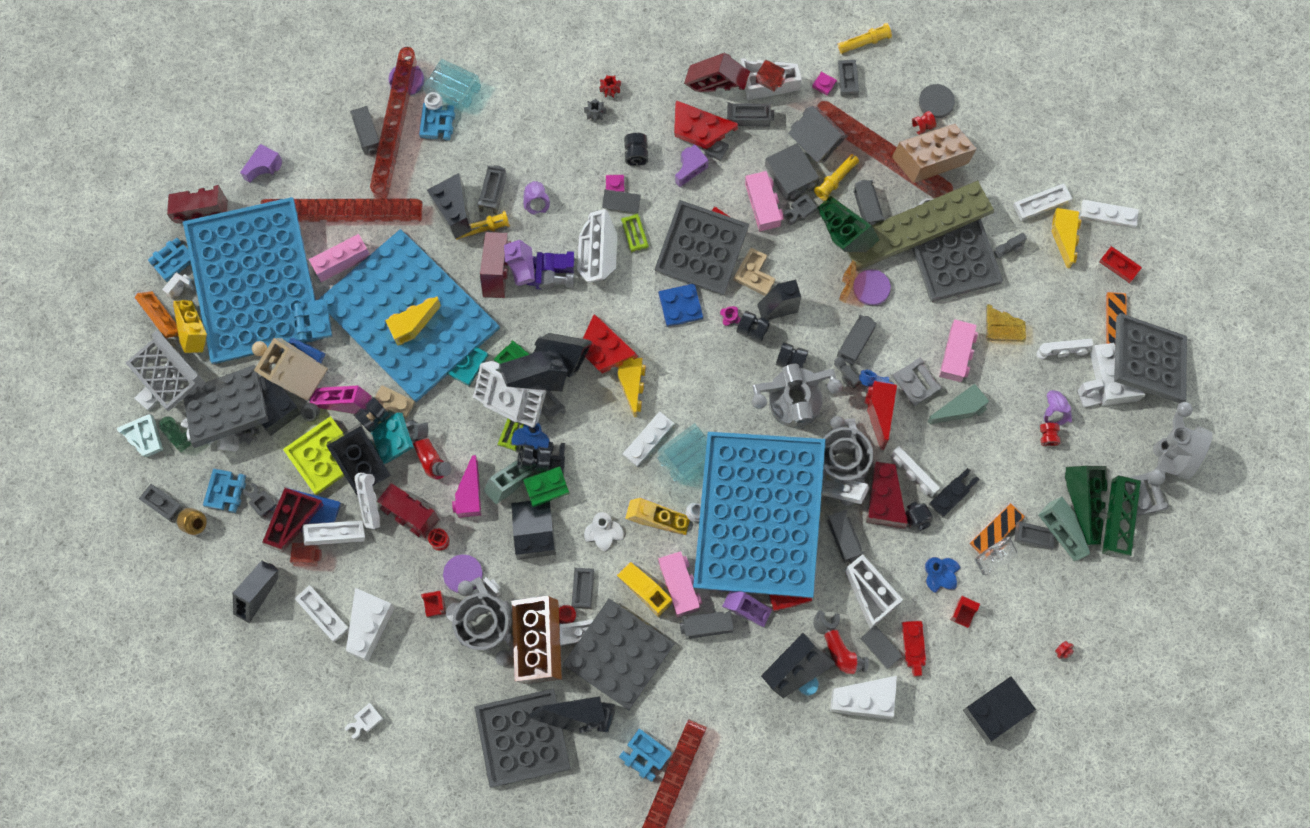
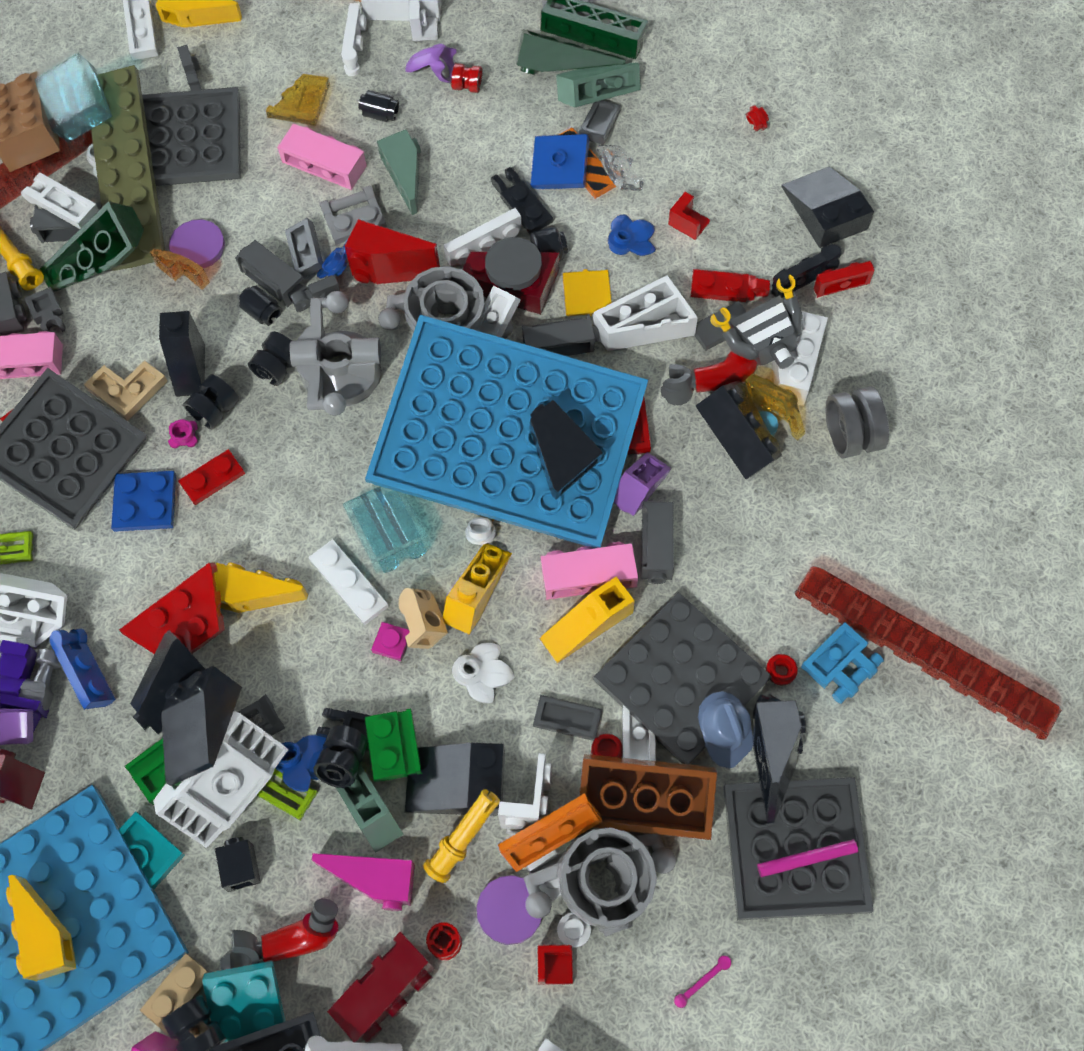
camera: 80 degrees left, 5 degrees down
(449, 702) = (722, 964): none -> dark pink hinge
(466, 416) = (237, 864): none -> black brick
(491, 533) = (453, 847): none -> yellow pin
(503, 585) = (550, 832): none -> orange tile
(514, 743) = (807, 858): none -> dark pink bar
(521, 578) = (518, 816): none -> white bracket
(566, 300) = (81, 668): none -> blue plate
(589, 683) = (725, 728): none -> sand blue piece
(614, 473) = (390, 641): none -> dark pink plate
(630, 487) = (422, 618): none -> tan leg
(640, 712) = (786, 661): none -> red plate
(704, 340) = (211, 477): none -> red plate
(749, 547) = (561, 447): none -> black slope
(814, 742) = (857, 422): none -> flat silver wheel
(822, 693) = (778, 401): none -> clear yellow wing
(831, 338) = (259, 305): none -> black brick
(868, 672) = (767, 330): none -> dark grey torso
(875, 194) = (60, 201): none -> white plate
(881, 356) = (304, 248): none -> dark grey plate
(887, 493) = (513, 263): none -> dark grey tile
(889, 551) = (586, 291): none -> yellow piece
(932, 720) = (842, 279): none -> red plate
(936, 701) = (808, 269): none -> black hinge
(954, 179) = (73, 97): none -> clear light blue brick
(990, 513) = (560, 161): none -> blue plate
(1010, 378) = (378, 106): none -> black brick

